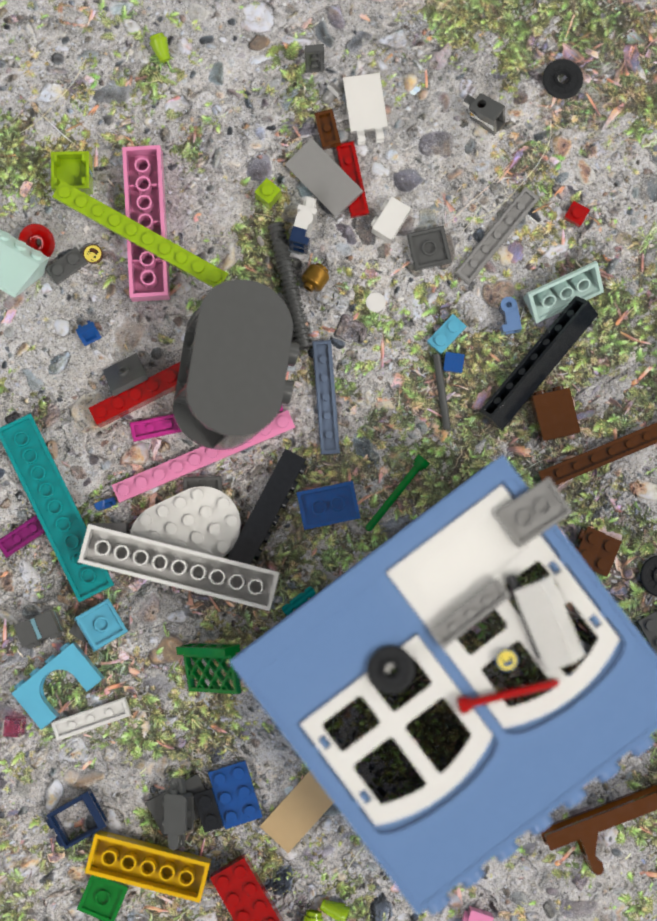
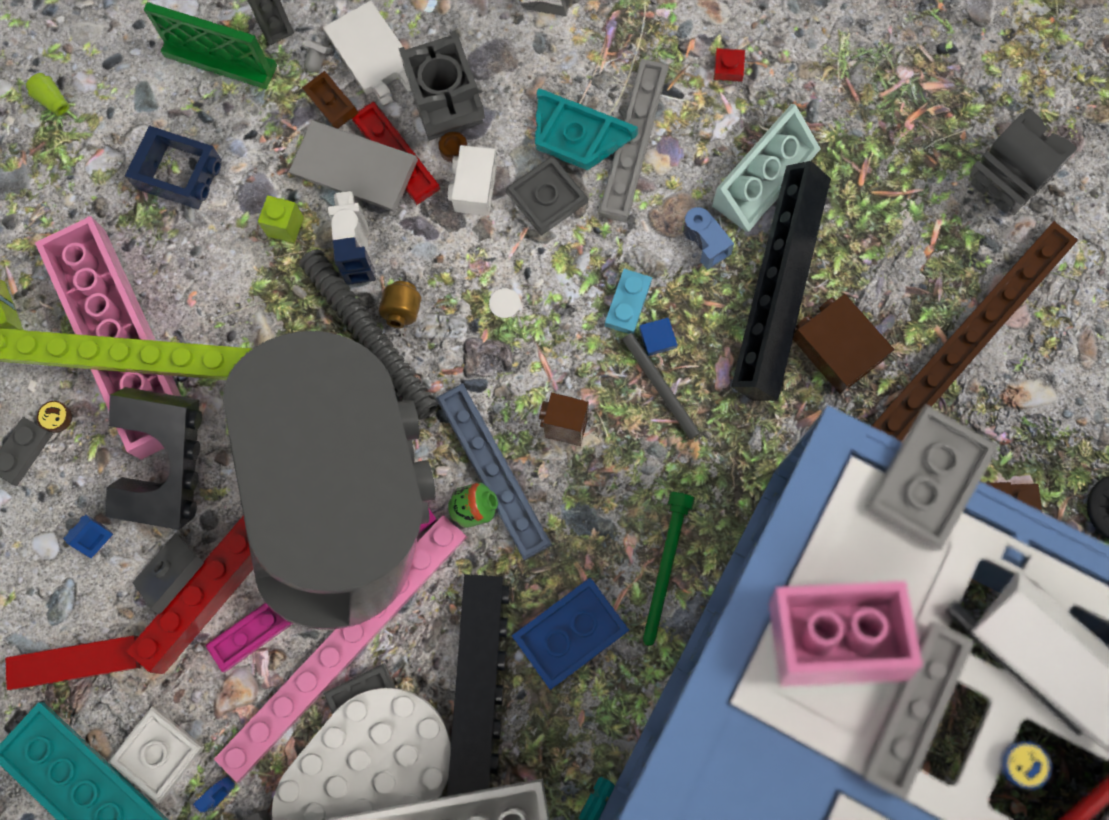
camera: 15 degrees left, 10 degrees down
(54, 399) = (69, 663): none -> red tile
(81, 468) = (156, 754): none -> white tile
(162, 294) = (175, 425): none -> black arch
(205, 118) = (148, 159): none -> dark blue window
(270, 65) = (211, 46): none -> green fence
(306, 412) = (472, 505): none -> bright green head
(378, 387) = (564, 418): none -> reddish brown brick
(387, 191) = (450, 145): none -> reddish brown tile
(397, 141) = (442, 86): none -> dark grey piece
(451, 564) = (844, 634): none -> bright pink brick
(464, 216) = (578, 132): none -> teal wing

